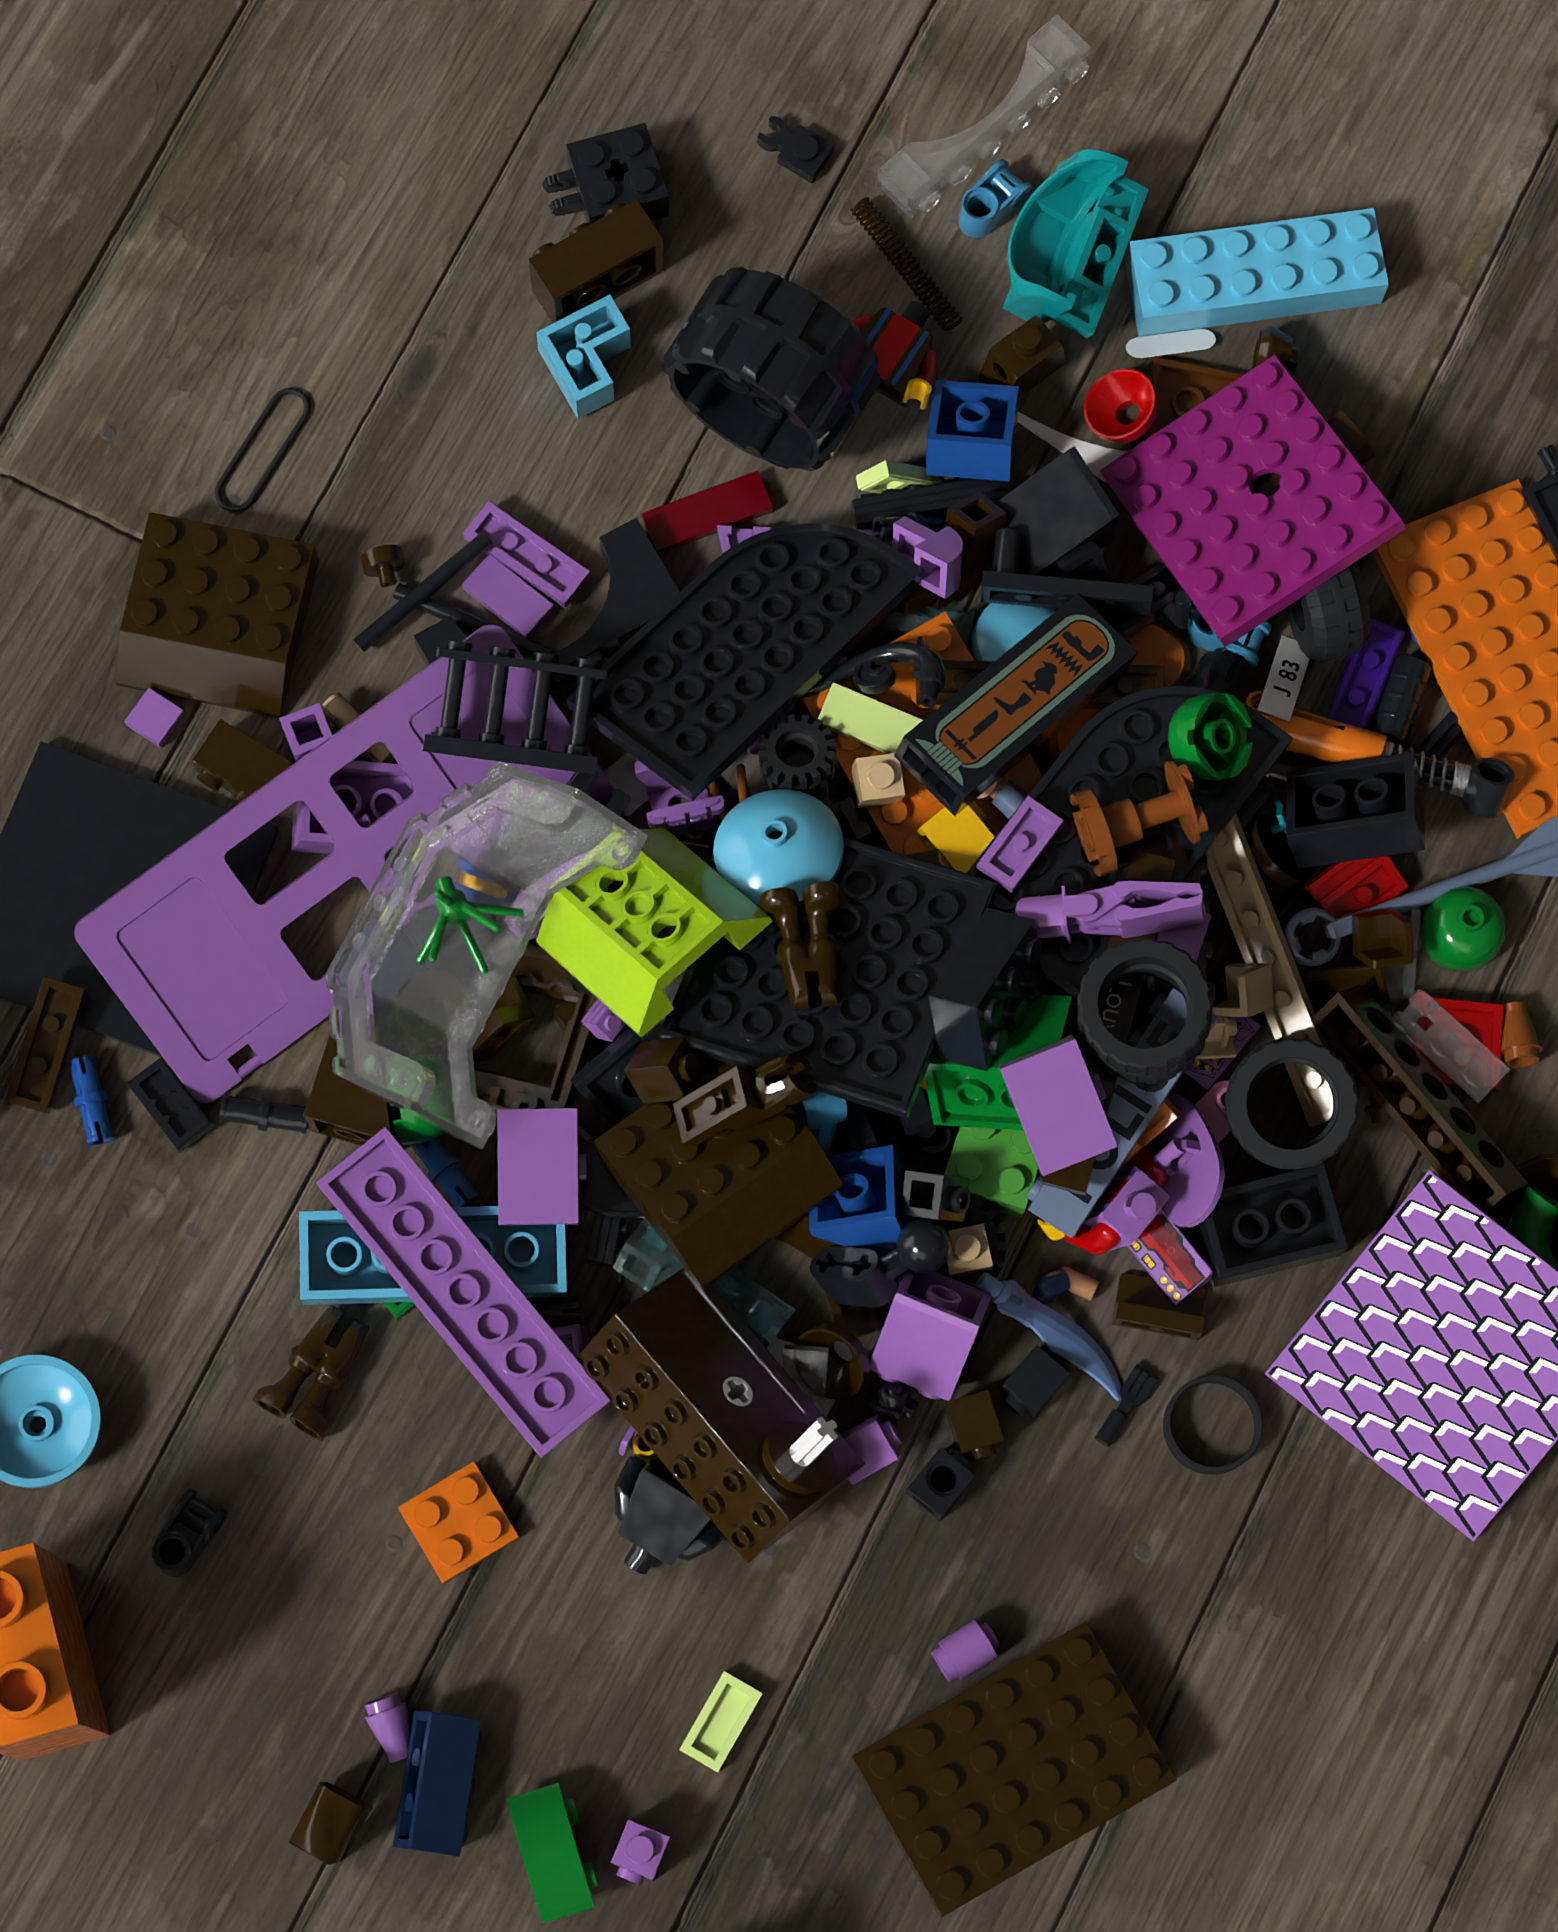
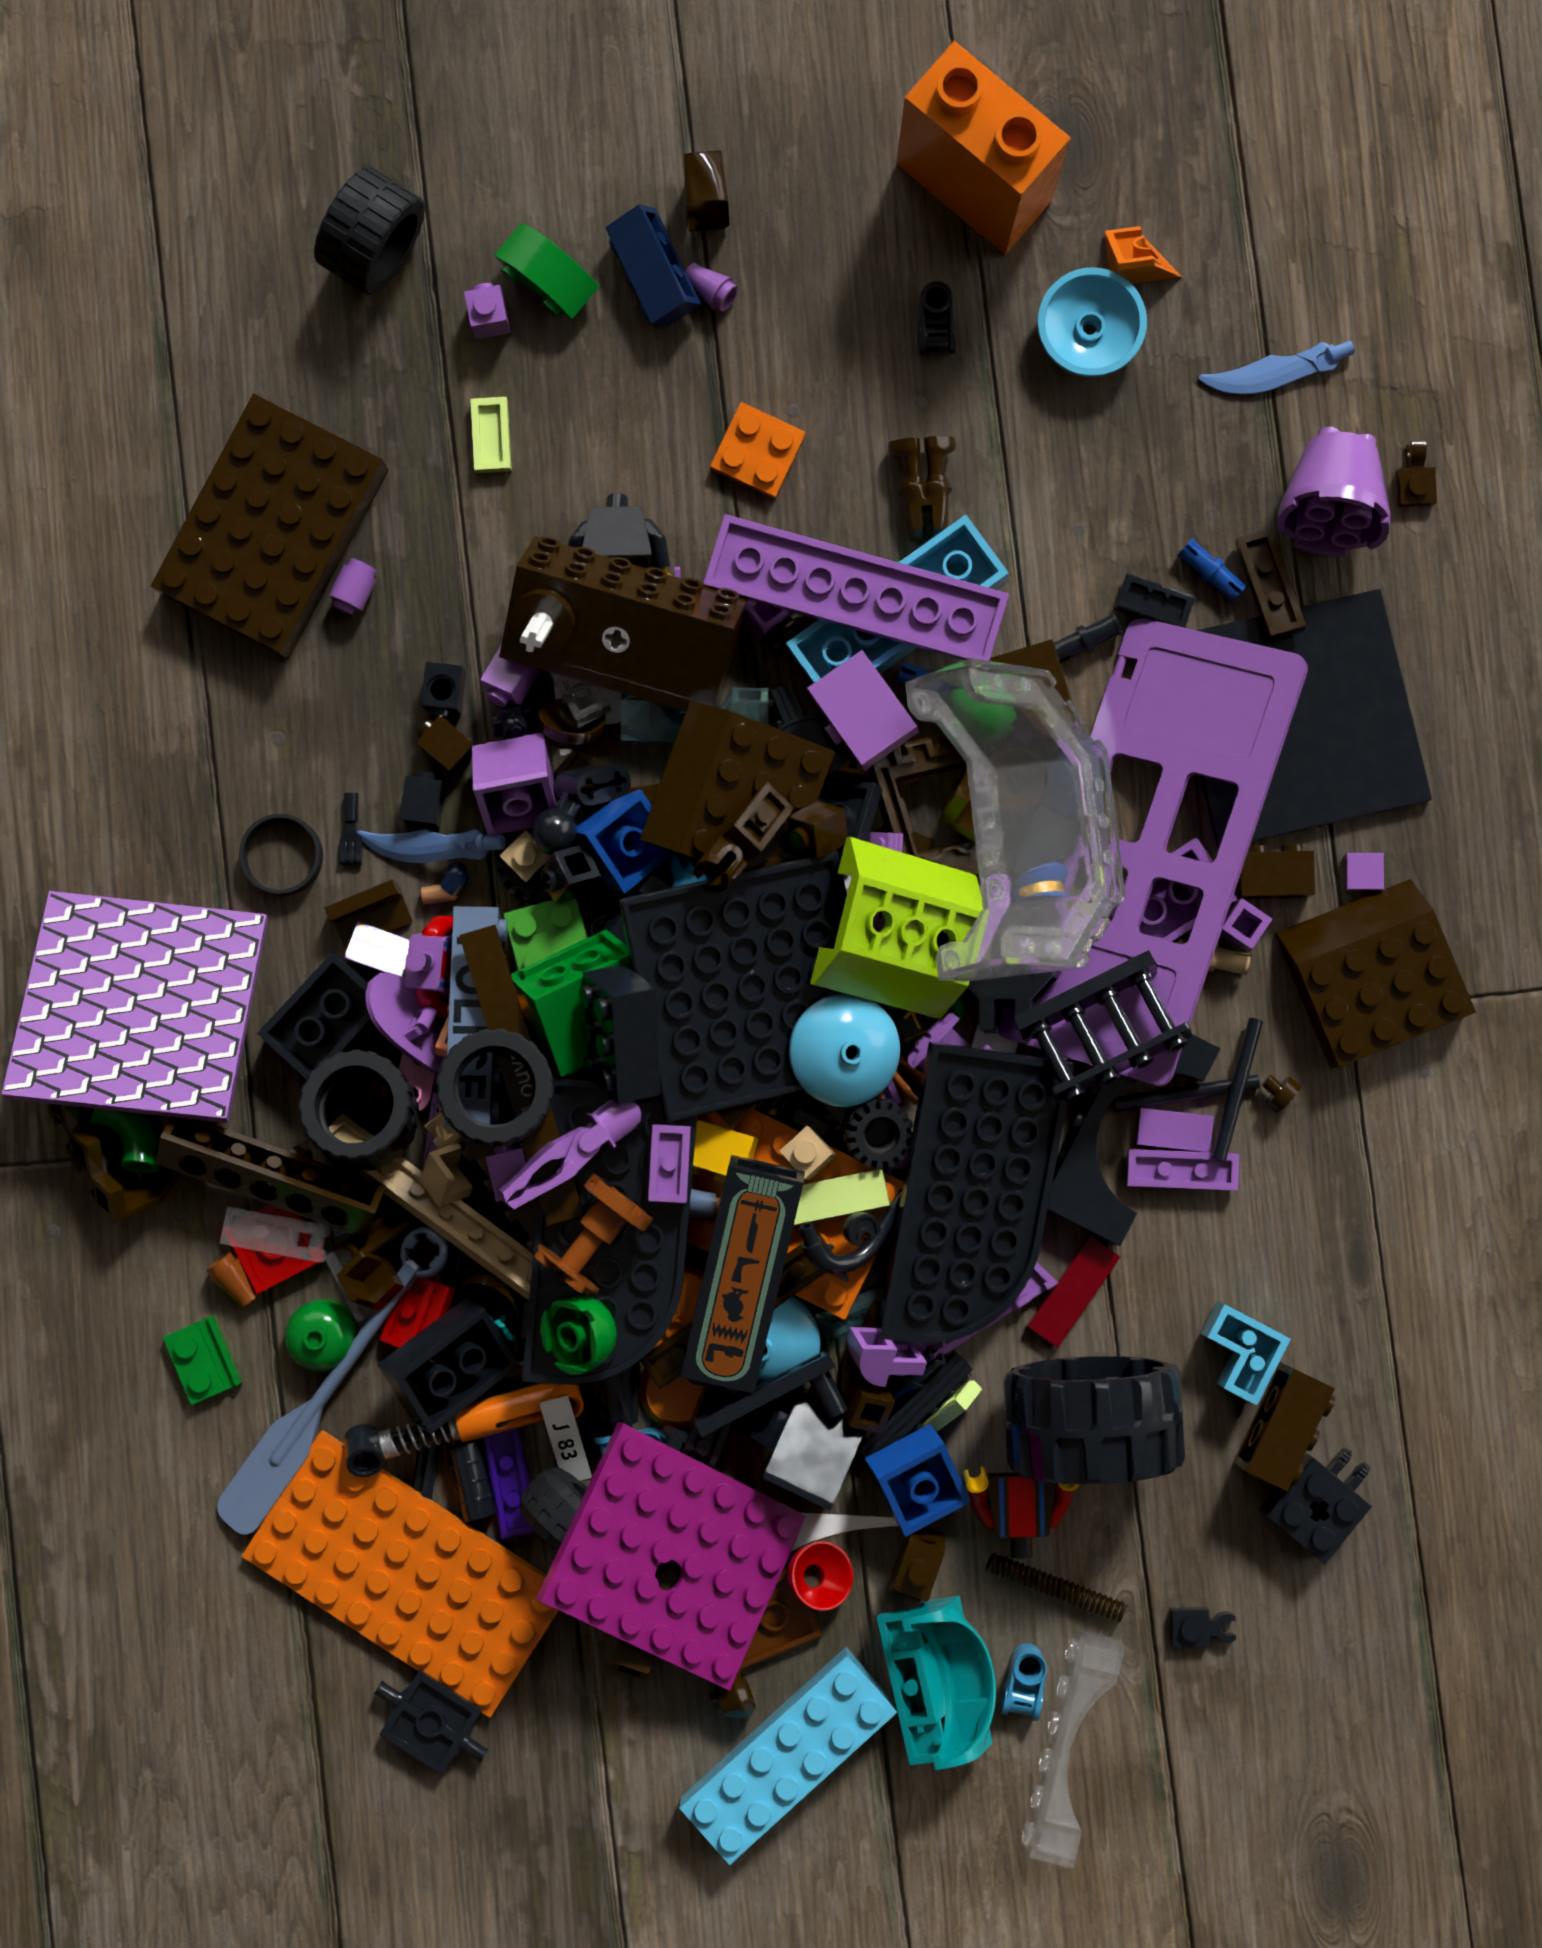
camera: 150 degrees right, 10 degrees up
(247, 441) = (1415, 1128): black piece -> none
(455, 910) = (1044, 848): green plant -> none
(803, 959) = (770, 969): dark brown piece -> none
(1058, 1105) = (514, 979): medium lavender container -> none
(1170, 343) = (818, 1656): white sticker -> none

